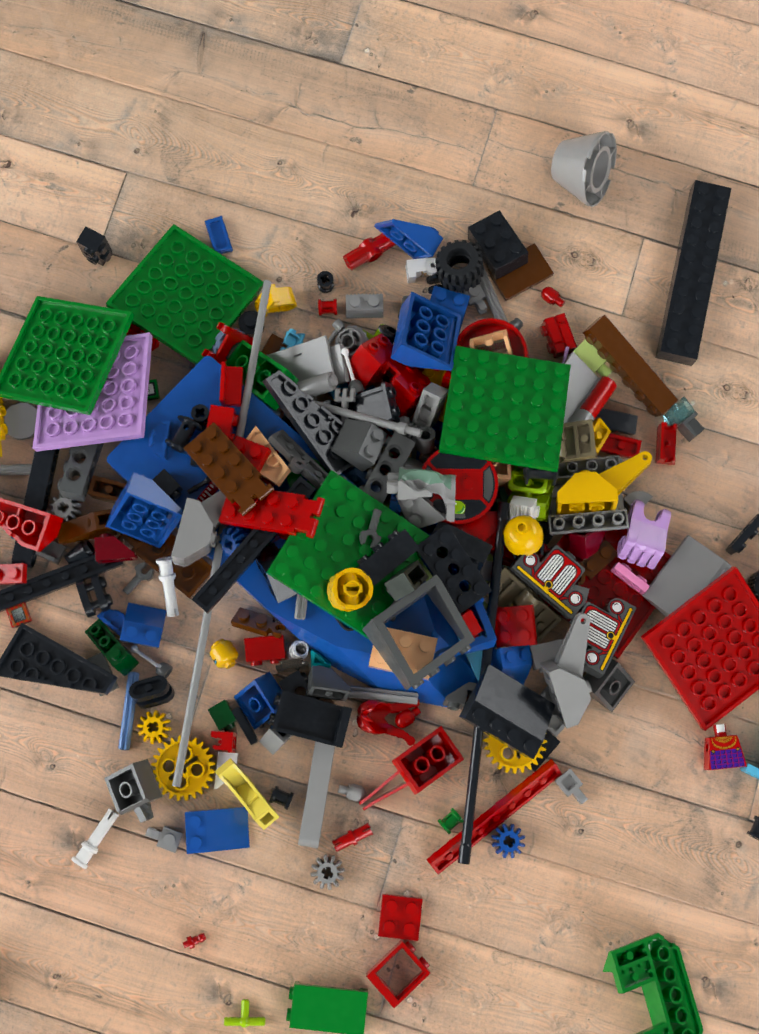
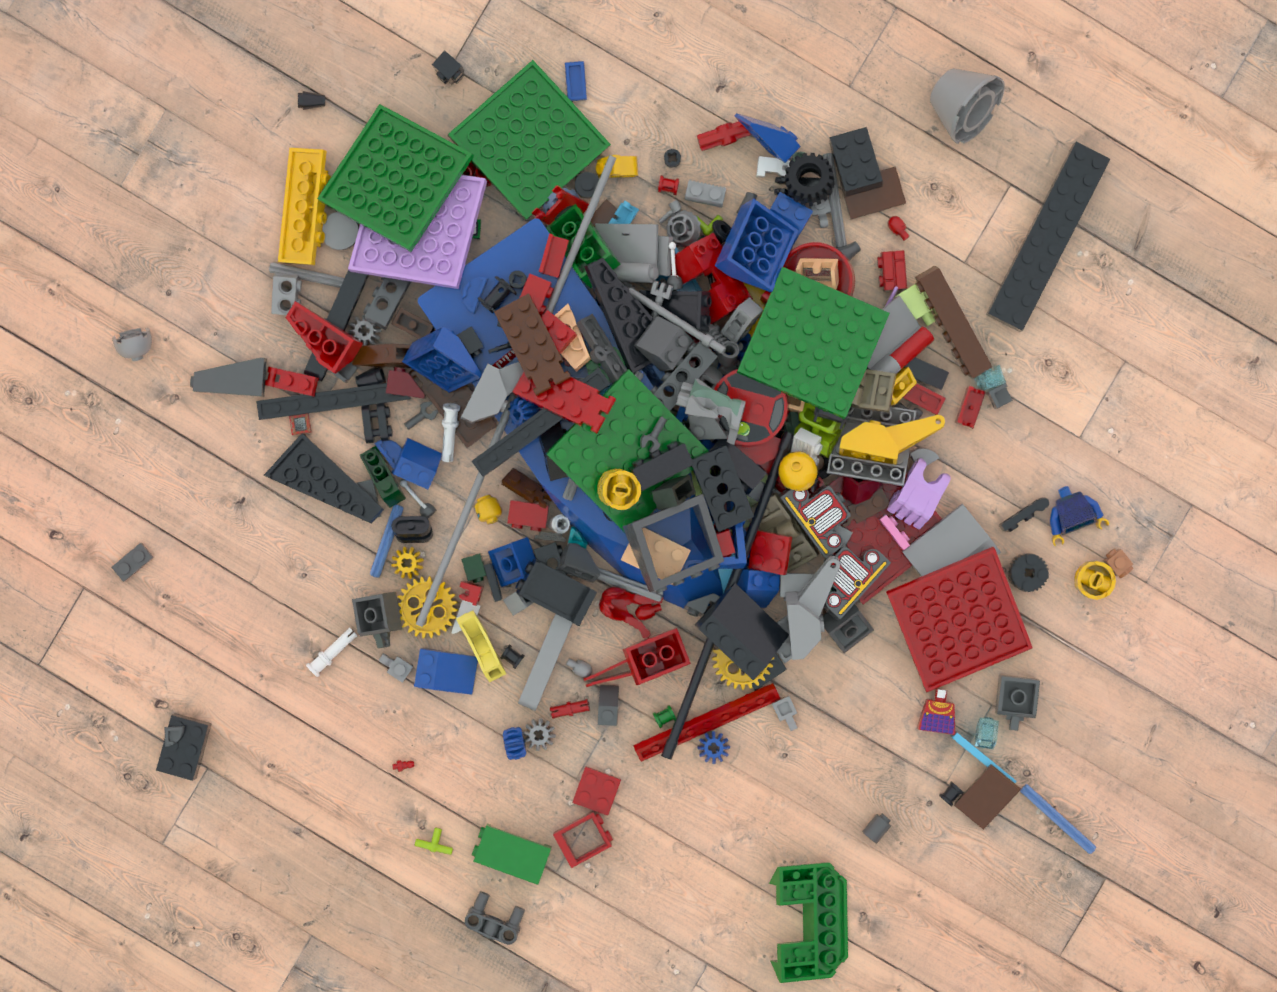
camera: 20 degrees right, 10 degrees up
(304, 888) = (514, 743): none -> blue gear
(390, 823) = (608, 705): none -> dark grey slope
(695, 883) = (877, 827): none -> dark grey brick

